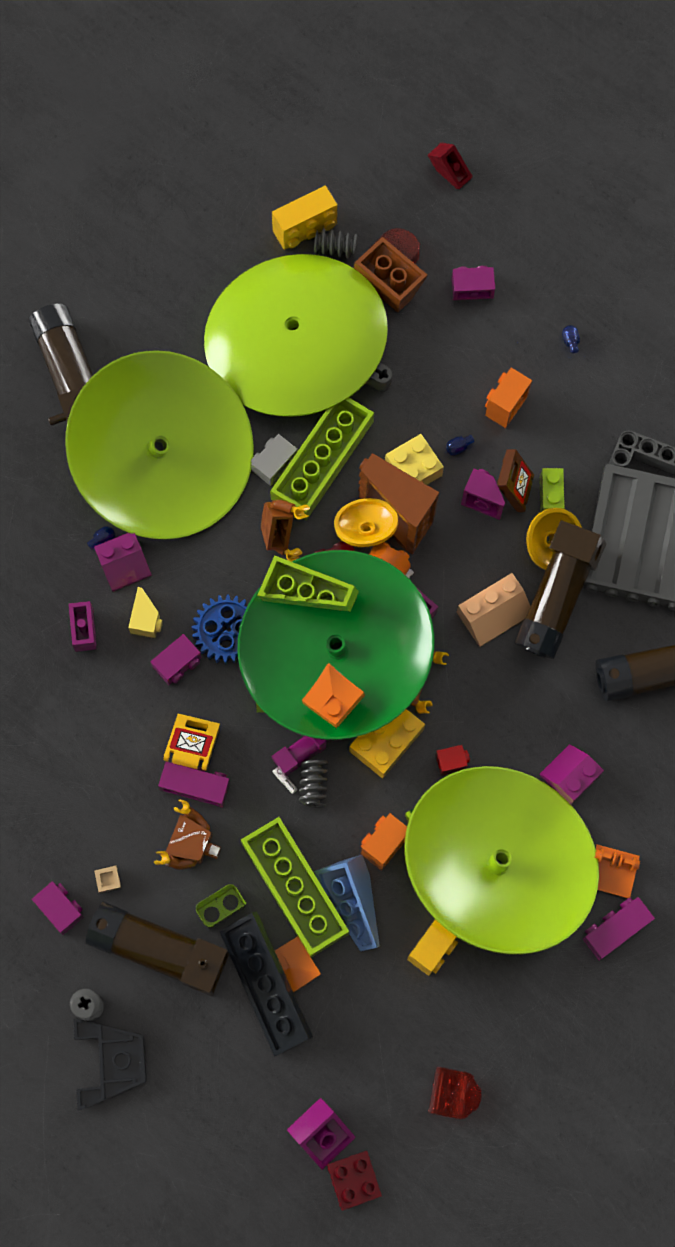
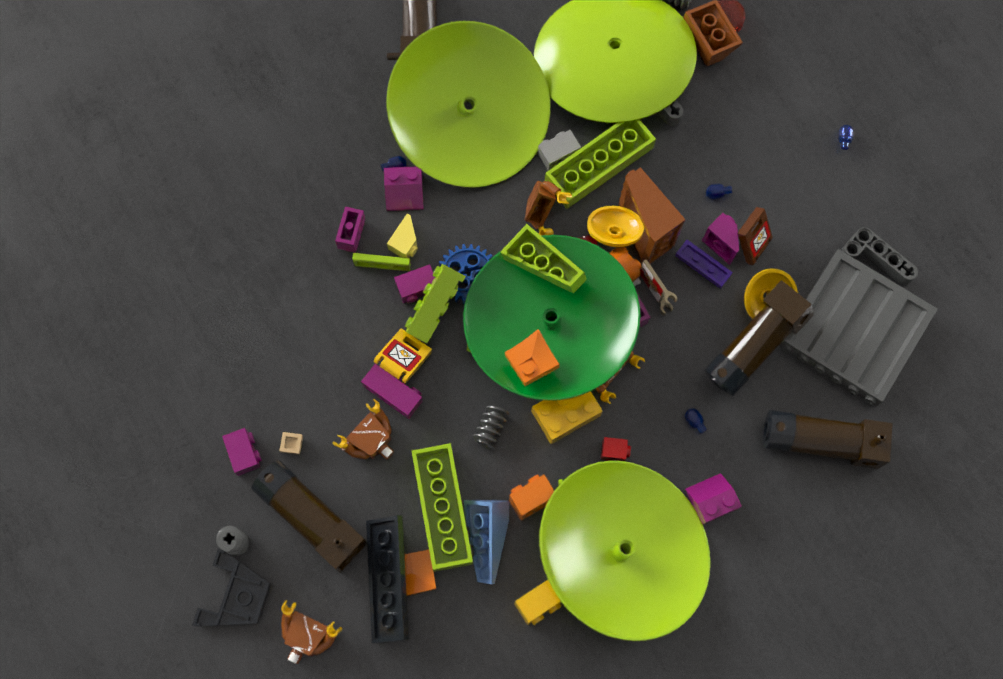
camera: 20 degrees right, 0 degrees up
(129, 649) = (381, 262): none -> lime tile
(202, 1073) = (305, 634): none -> dark orange torso
(204, 673) = (434, 302): none -> lime wedge
(211, 902) = (369, 493): lime piece -> none
(285, 780) = (468, 414): white pin -> none
(304, 749) = (495, 395): magenta piece -> none
(417, 460) = (678, 190): light yellow brick -> none
(433, 572) = (656, 287): none -> flag
(472, 528) = (703, 264): none -> dark purple plate
(473, 283) = (779, 63): magenta brick -> none
(494, 609) = (697, 337): light nougat slope -> none
(507, 397) = (773, 165): orange brick -> none
(523, 697) = (695, 419): none -> clear blue cylinder
(551, 488) = (783, 253): lime brick -> none
(616, 871) = (721, 596): orange hinge -> none
(617, 927) = (704, 645): magenta brick -> none

